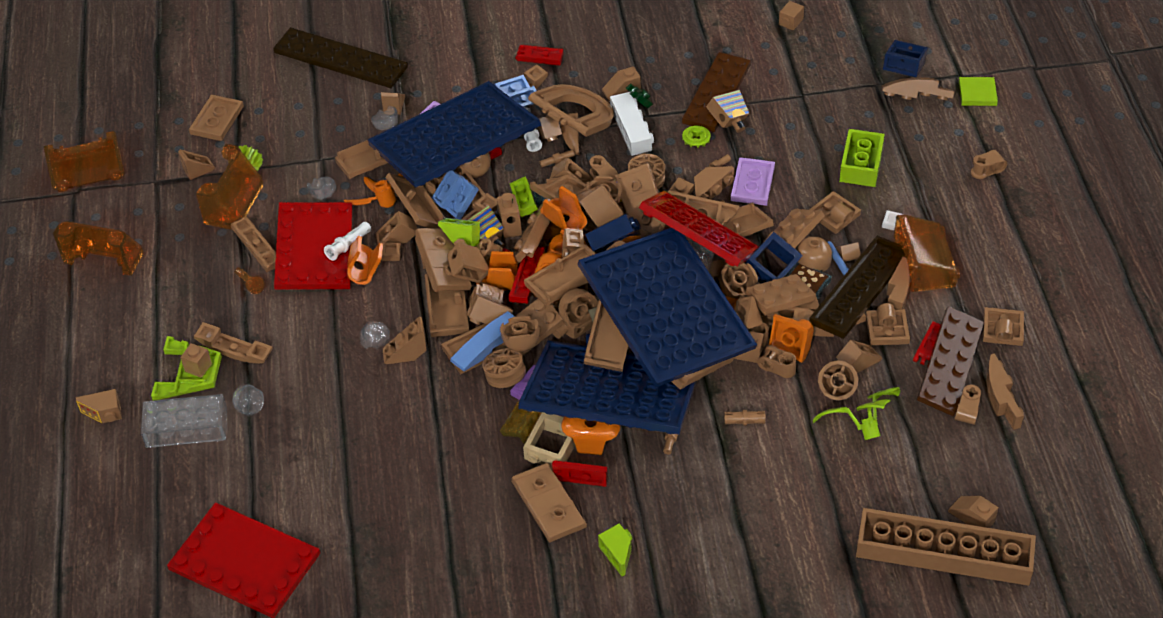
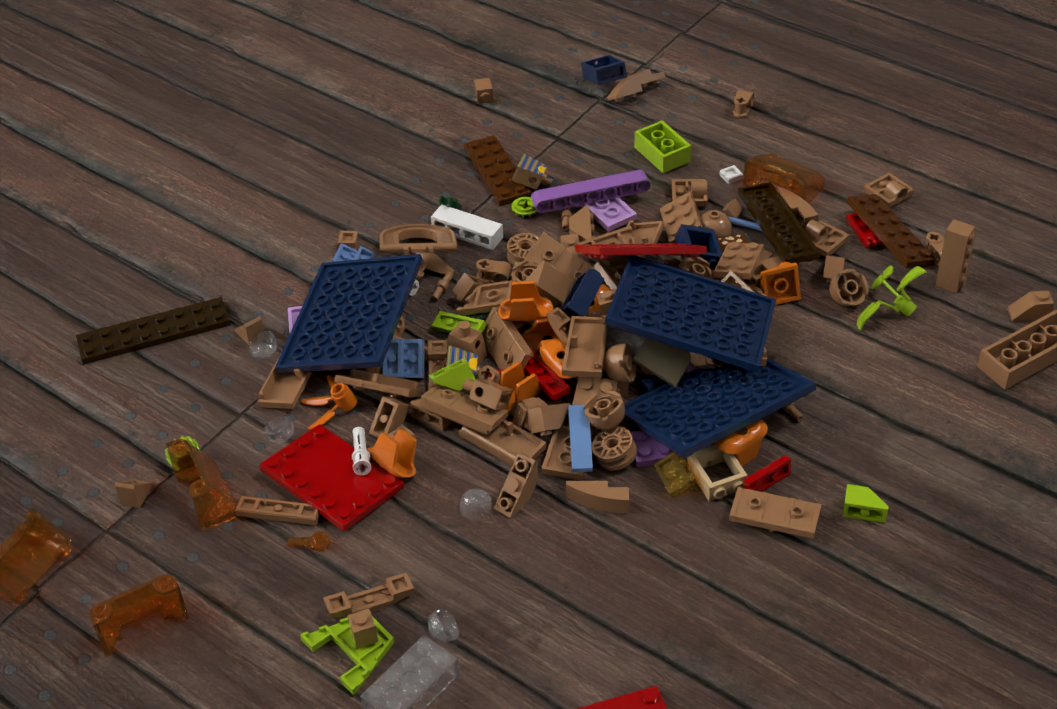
camera: 45 degrees left, 5 degrees down
(216, 117) = (101, 443): medium nougat plate -> none
(454, 395) = (599, 496): none -> medium nougat slope
(539, 54) = (328, 225): red hinge -> none
(606, 344) = (673, 366): medium nougat container -> none
(620, 81) = (424, 205): medium nougat slope -> none
(744, 417) = (817, 358): medium nougat pin -> none
(751, 157) = (590, 191): none -> medium lavender beam
(778, 362) = (790, 307): medium nougat piece -> none
(950, 419) = (956, 256): none -> medium nougat wedge
(978, 91) = (672, 65): lime tile -> none
(1000, 394) = (933, 221): medium nougat slope -> none

